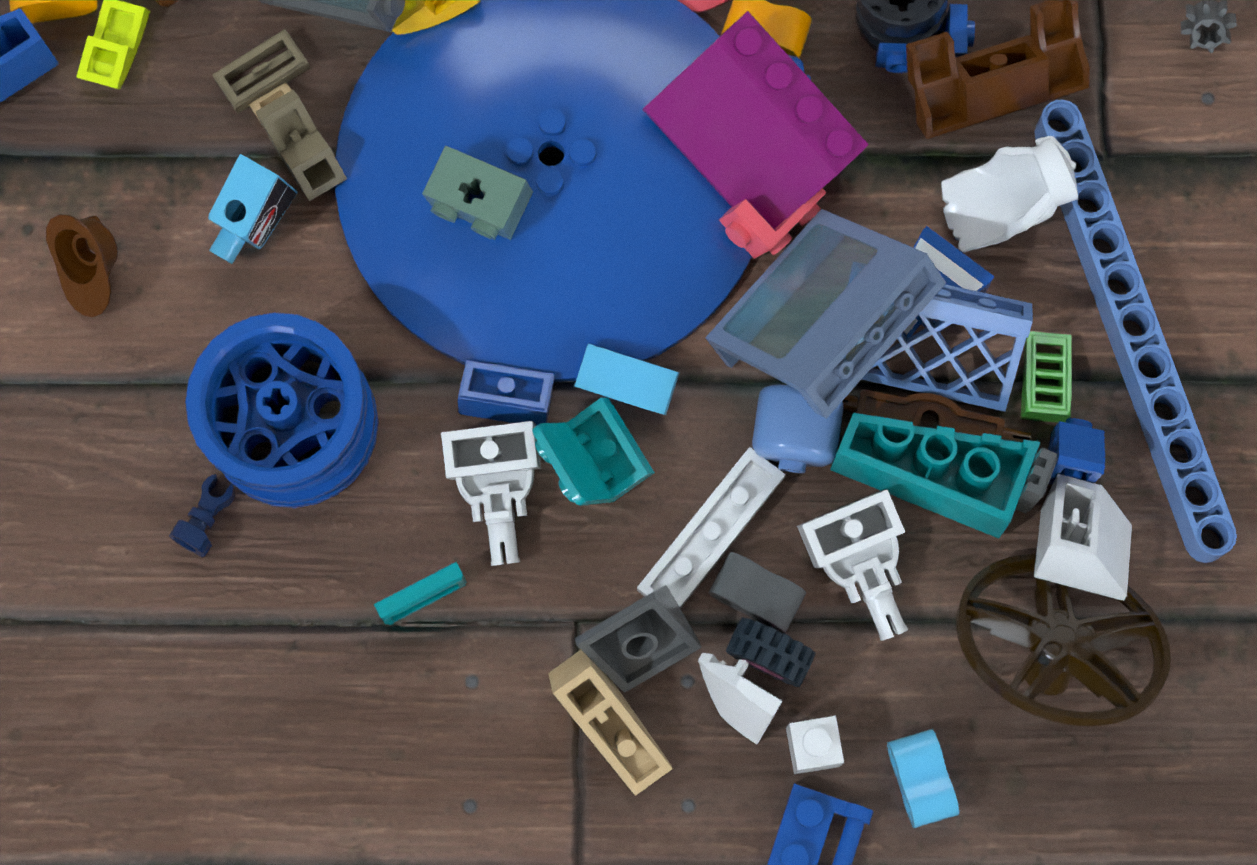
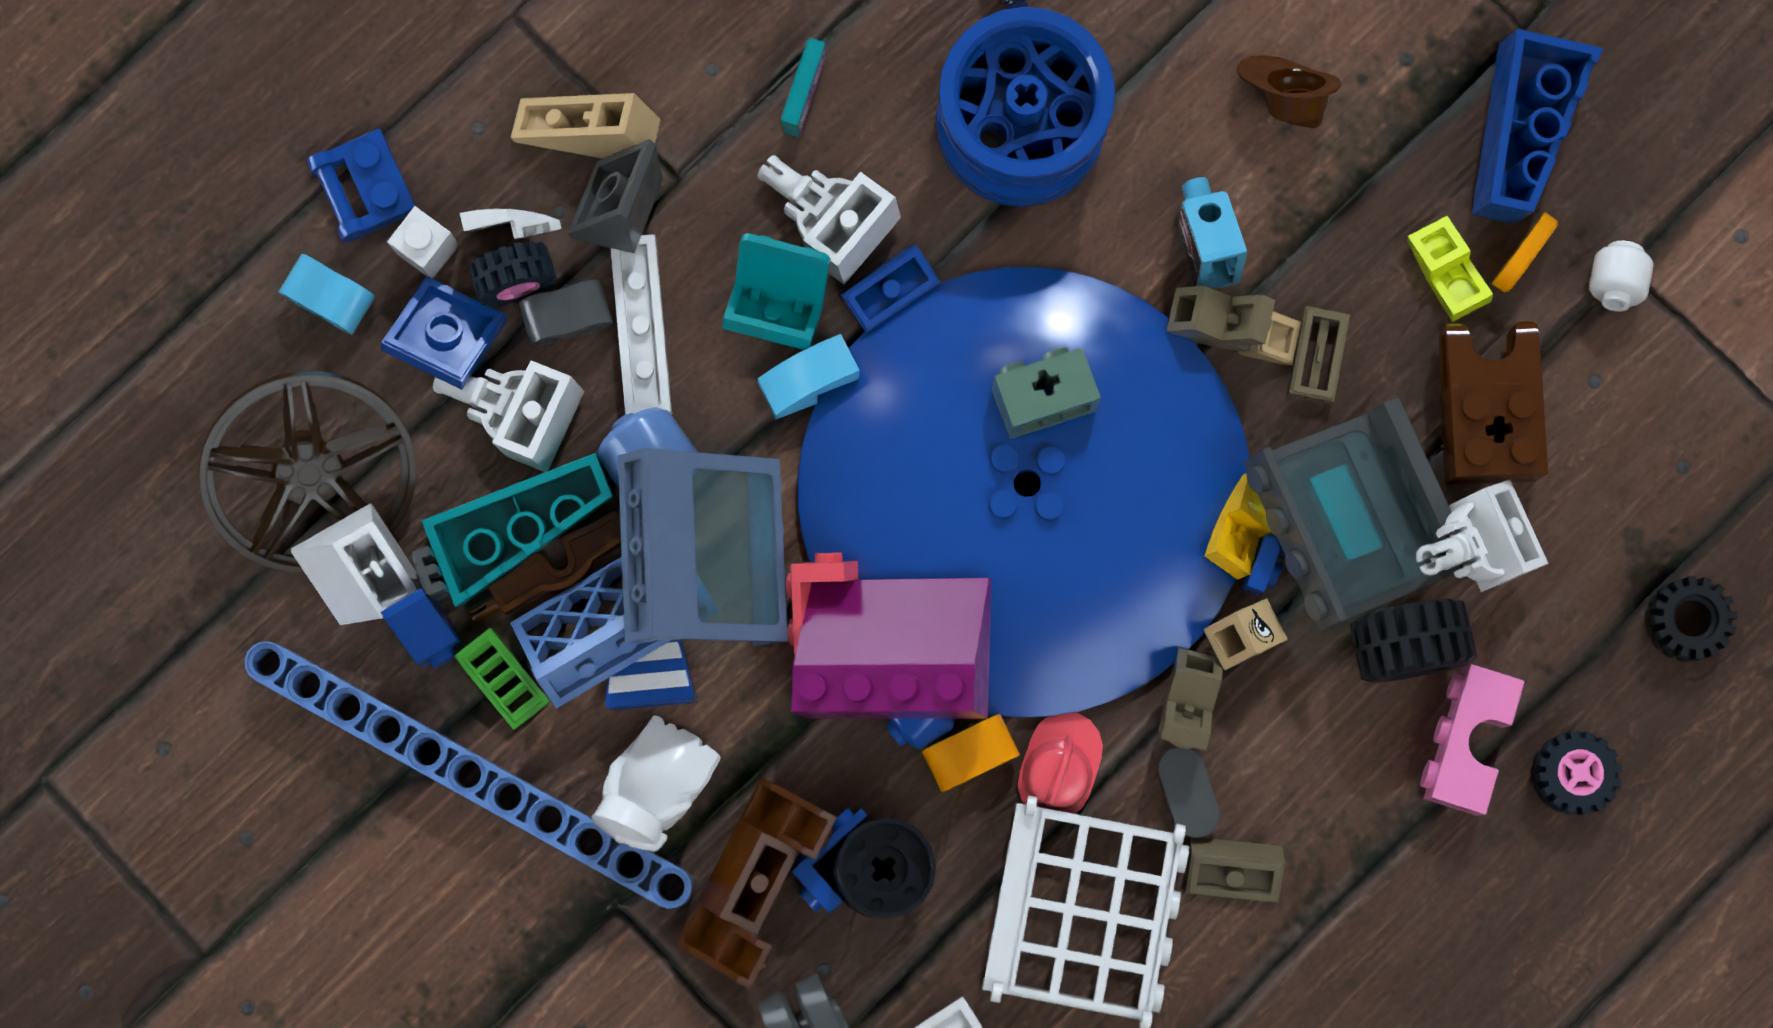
camera: 135 degrees right, 5 degrees up
(862, 662) = (443, 332): none -> blue plate

